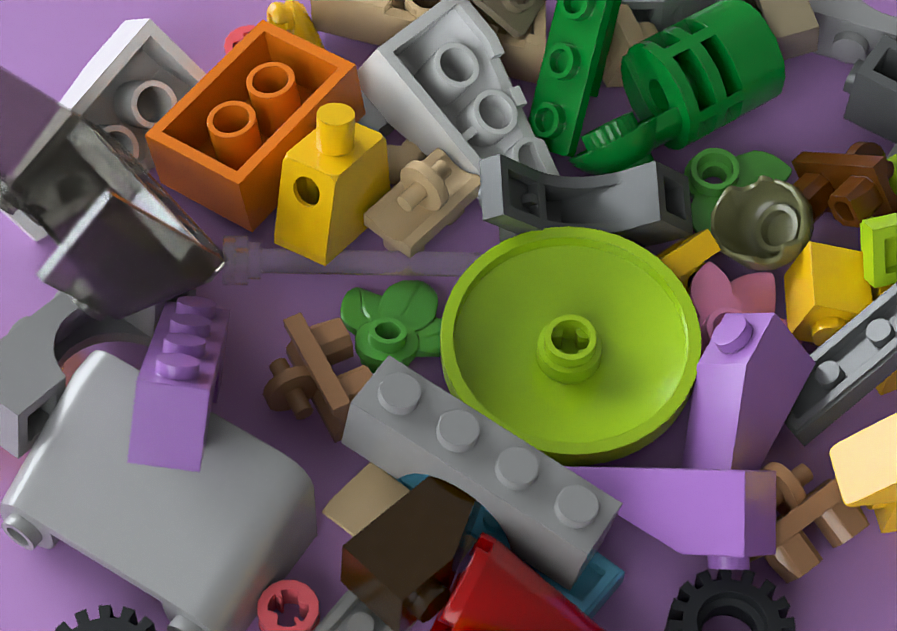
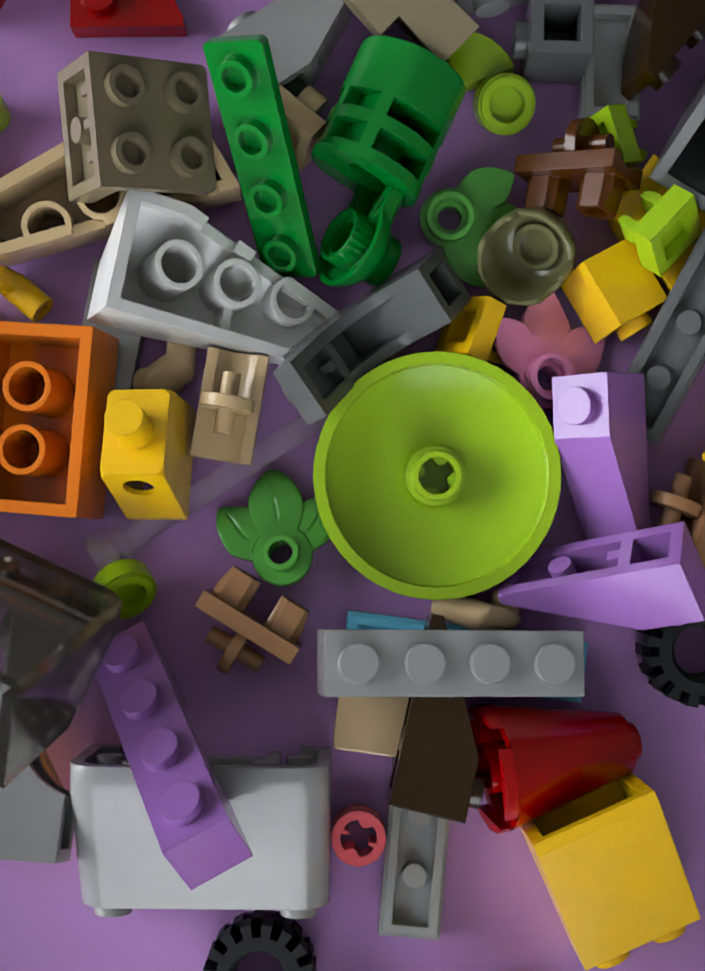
camera: 30 degrees left, 30 degrees up
(235, 289) = (132, 584): none -> lime tile
(811, 85) = (479, 59): none -> lime tile
(816, 121) = (504, 103): none -> lime tile

